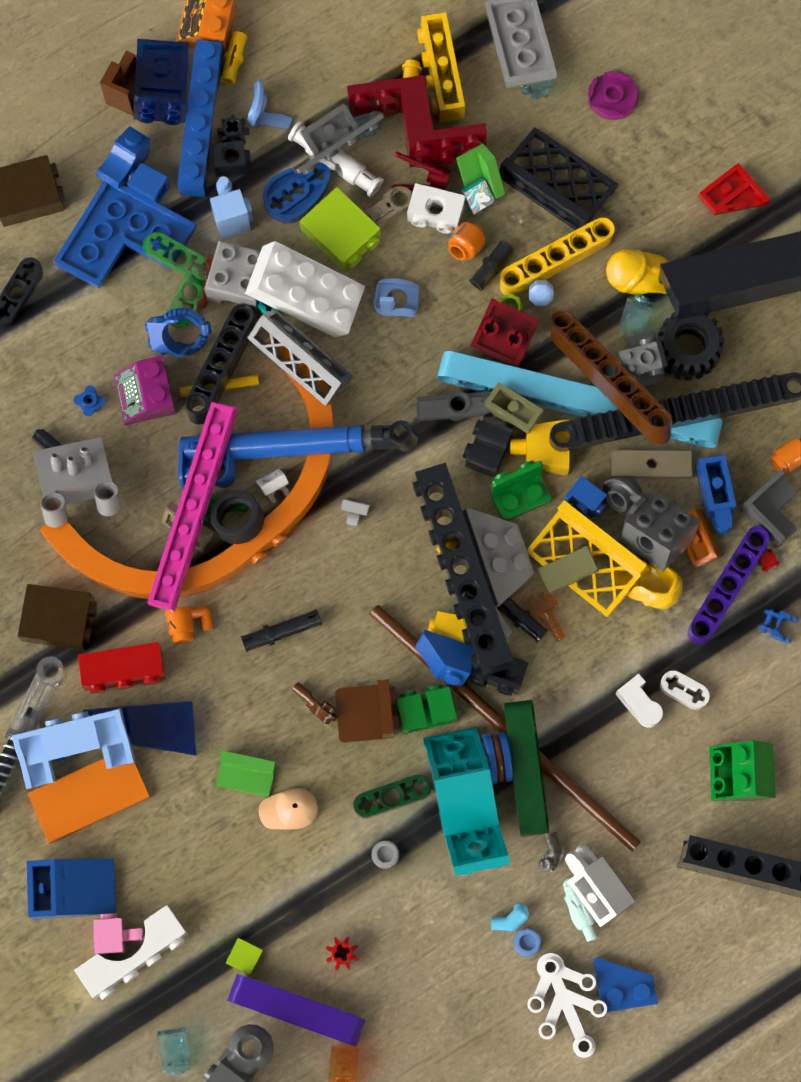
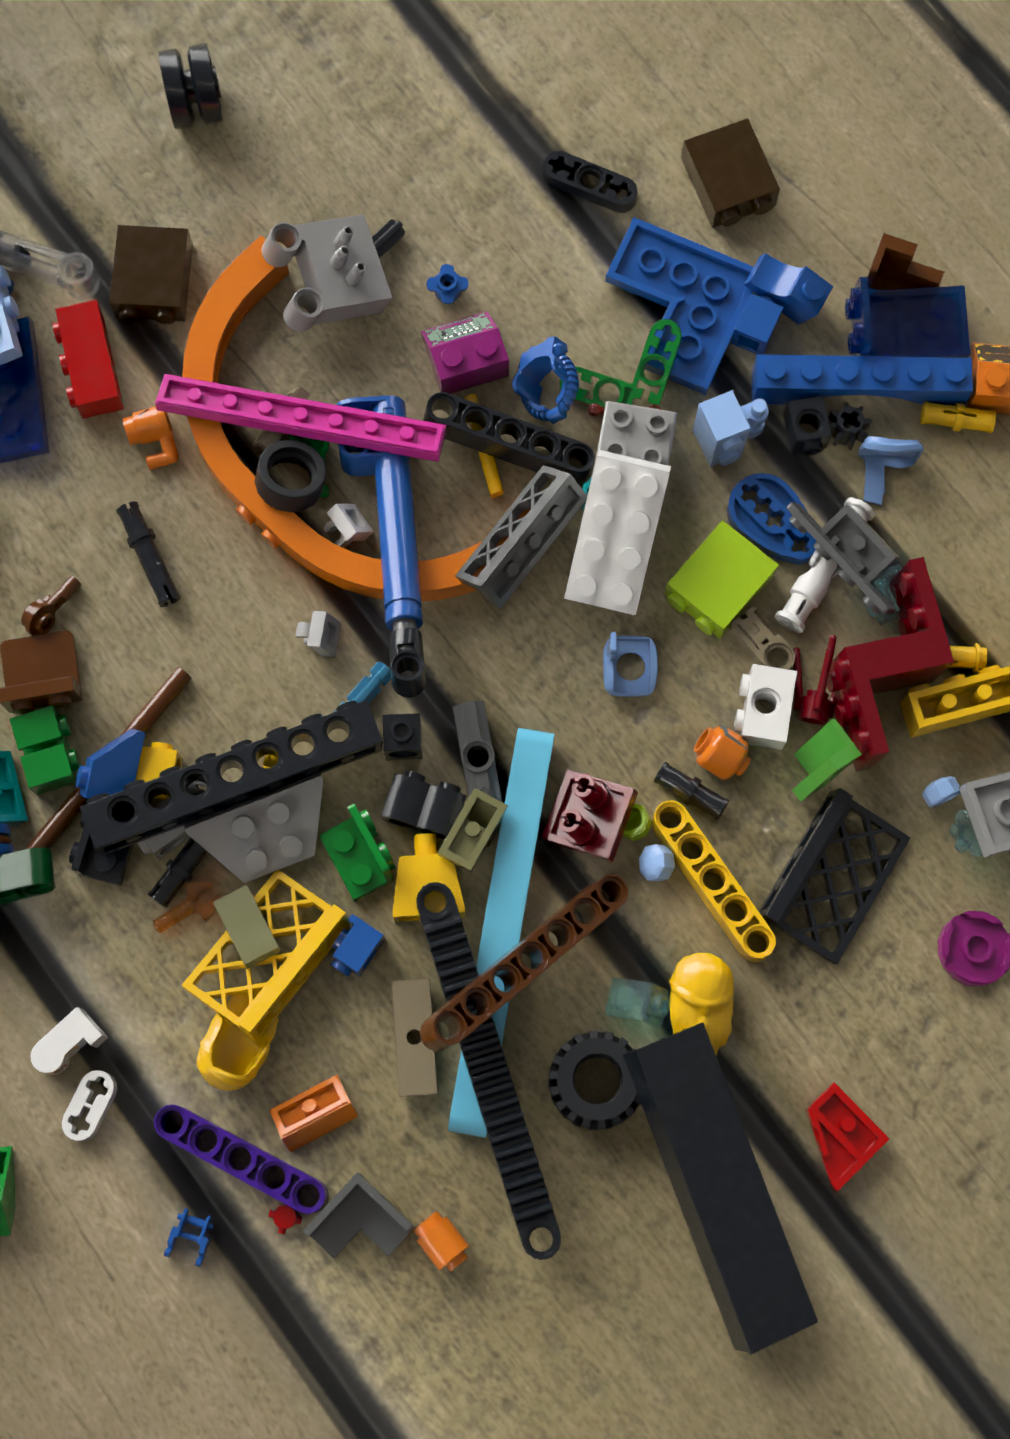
camera: 85 degrees right, 0 degrees up
(399, 481) = (370, 686): none -> dark azure axle
(438, 452) = (402, 736): none -> black brick
(477, 196) = (792, 763): tile -> none
(505, 102) = (941, 791): none -> light blue tile
(644, 359) = (562, 1016): dark grey tile -> none
(652, 523) = (316, 1041): dark grey brick -> none
(716, 491) = (374, 1132): blue hinge -> none

